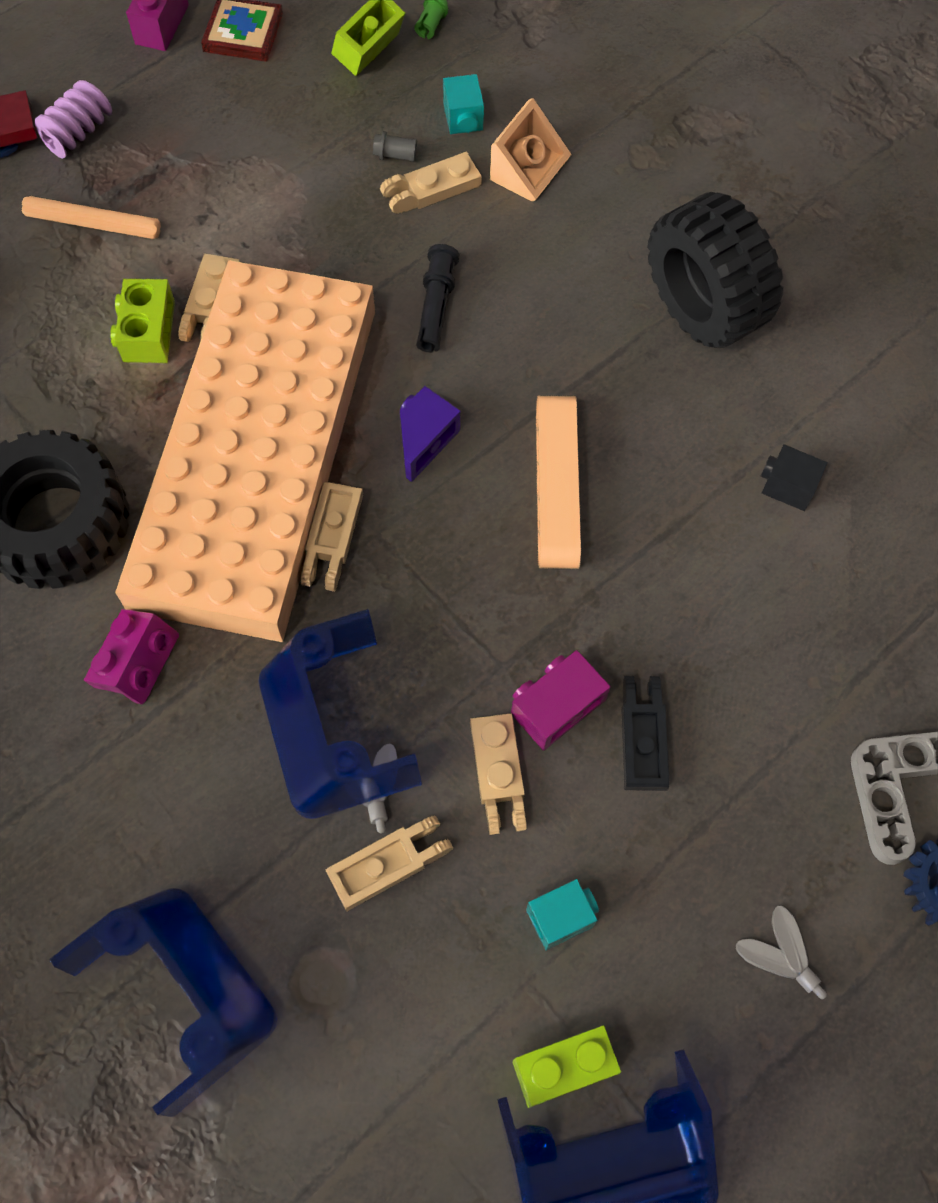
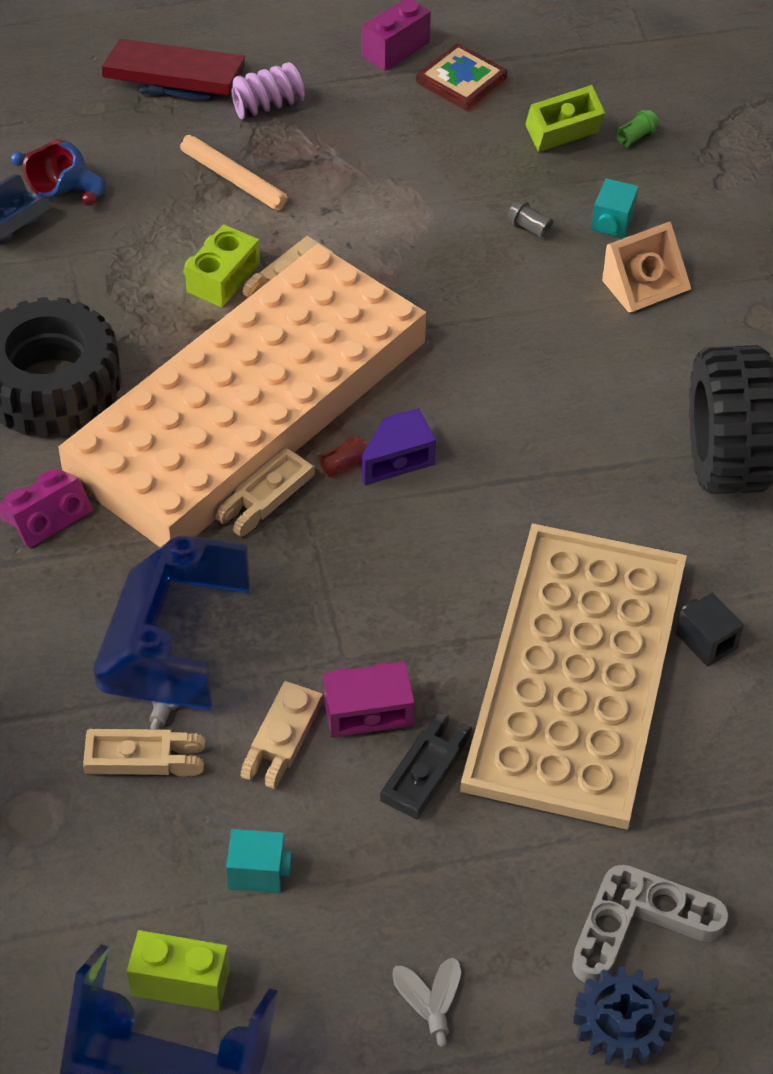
camera: 30 degrees right, 15 degrees down
(380, 462) = (343, 456): none -> clear red pin
(431, 183) = (543, 261): tan hinge -> none
(438, 284) = (492, 340): black pin -> none
(557, 483) = (488, 537): light nougat beam -> none
(713, 580) = (575, 677): none -> tan plate

